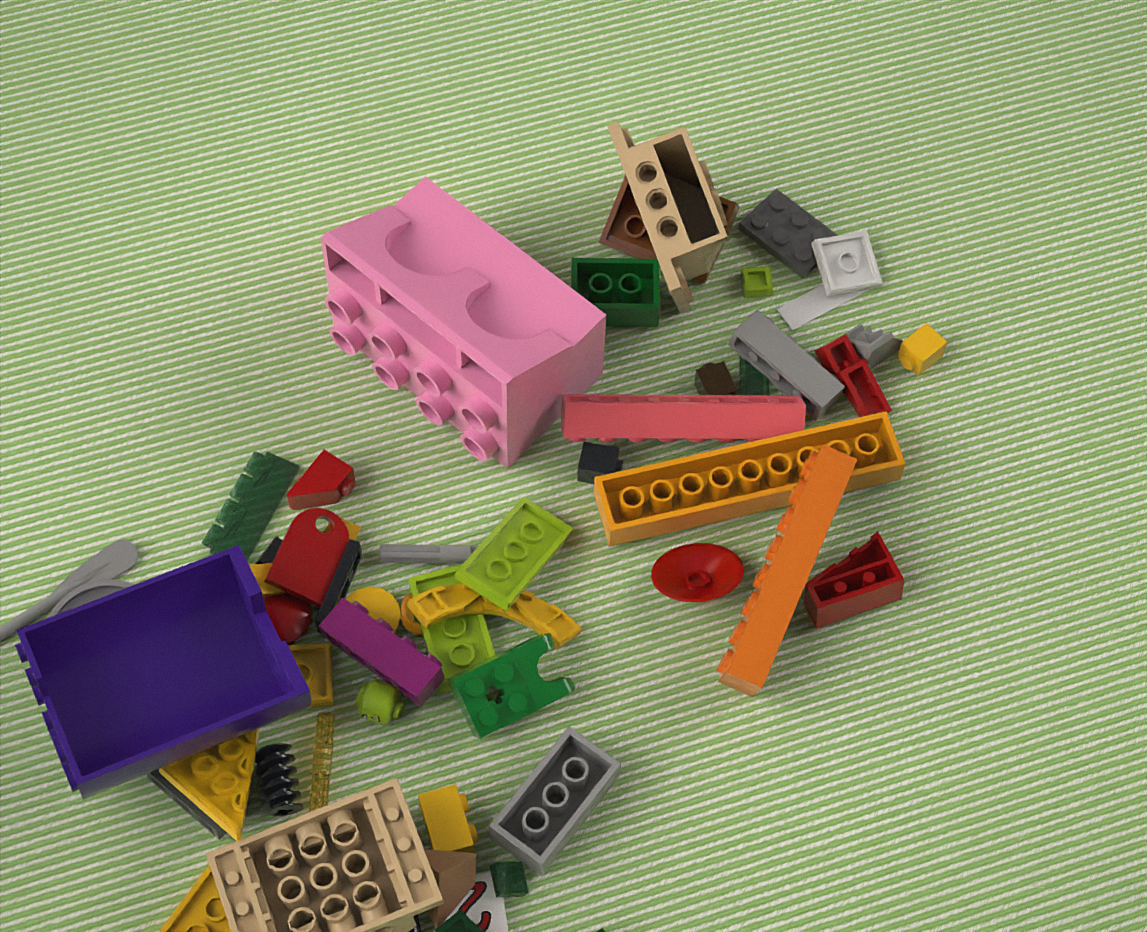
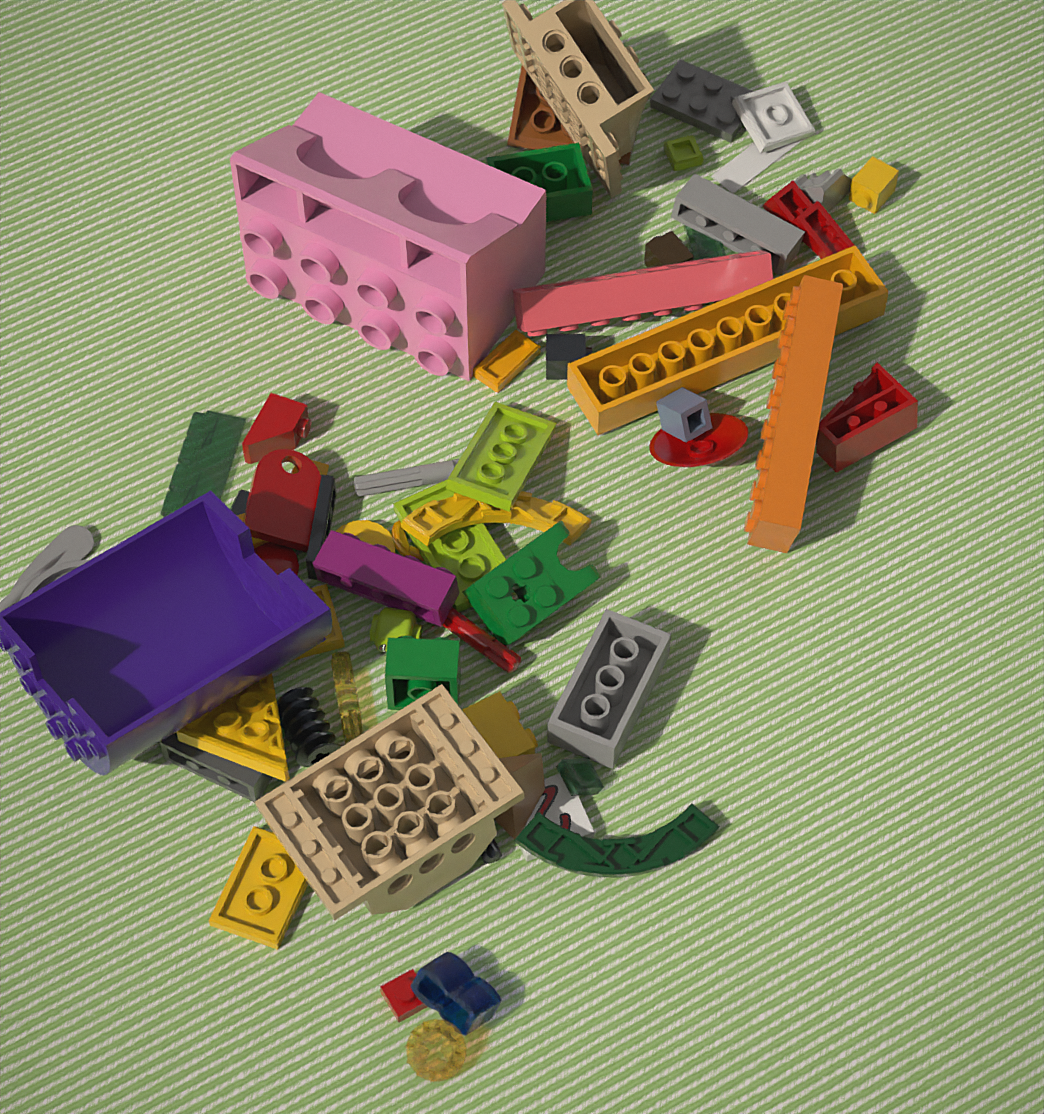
camera: 10 degrees left, 5 degrees down
(391, 752) = (419, 667): none -> green brick
(455, 728) = (482, 641): none -> red axle
(545, 457) = (506, 361): none -> light orange tile
(690, 545) = (684, 414): none -> sand blue brick

